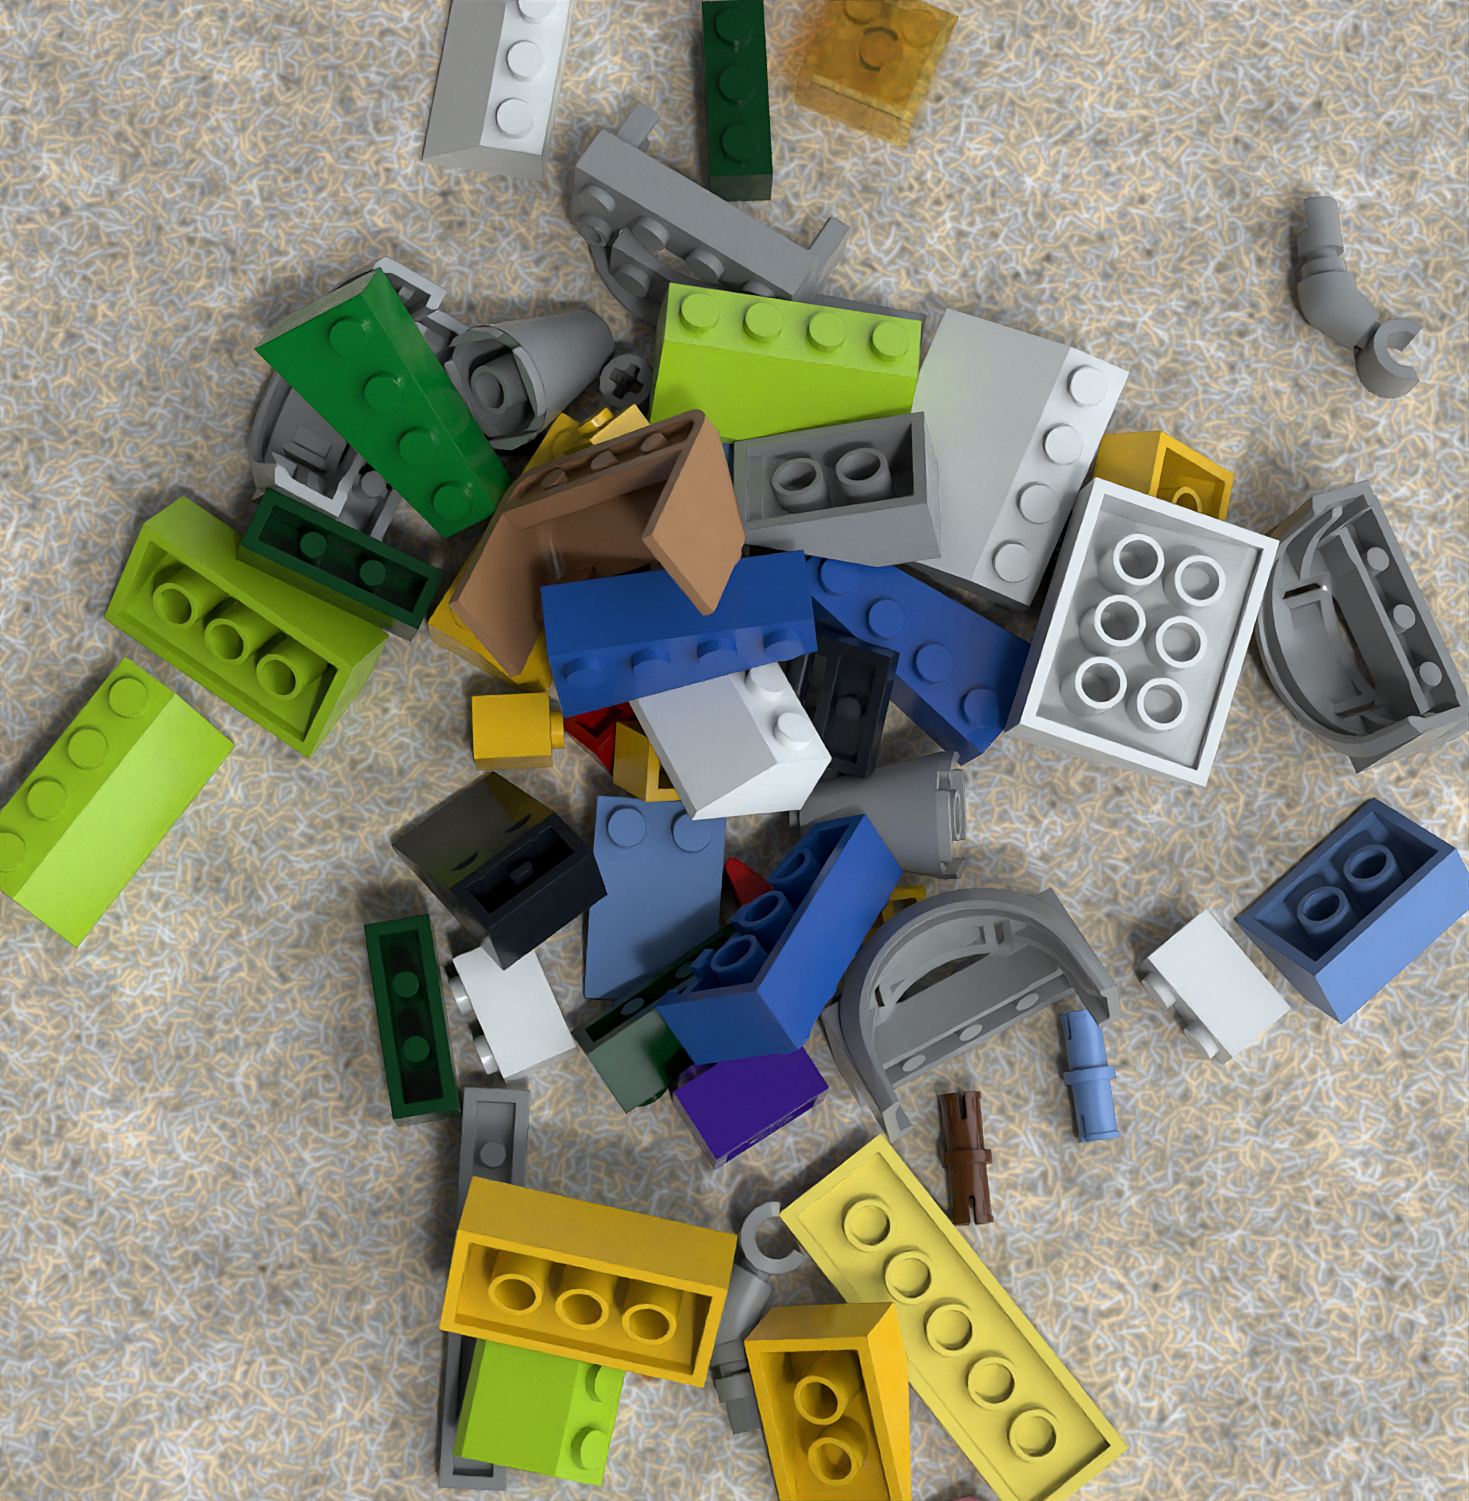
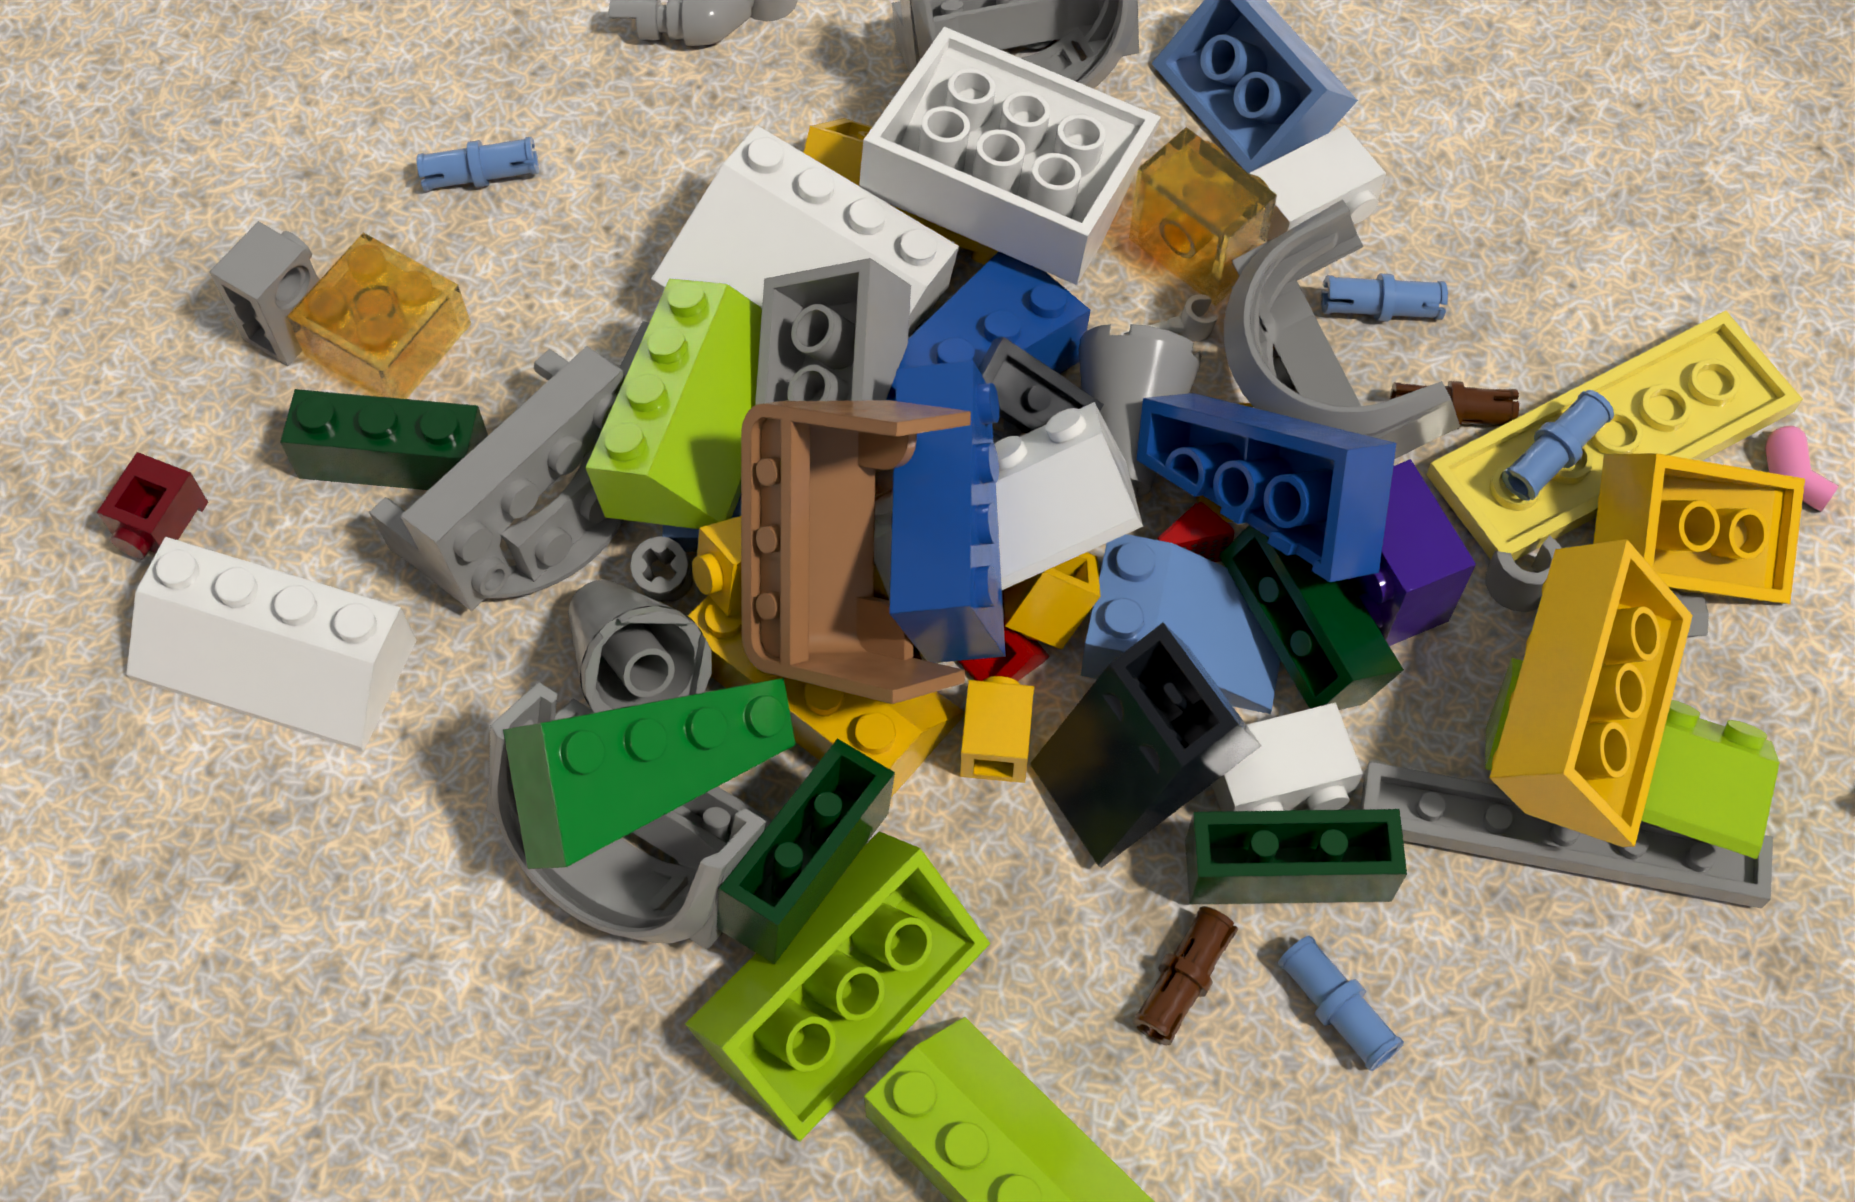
camera: 75 degrees left, 15 degrees down
(286, 1082) = (1340, 1003): none -> medium blue pin
(296, 937) = (1185, 975): none -> reddish brown pin
(909, 1258) = (1558, 445): none -> medium blue pin
(1021, 857) = (1189, 322): none -> white hand
(1094, 110) = (477, 163): none -> medium blue pin
(1144, 851) = (1199, 213): none -> clear yellow brick

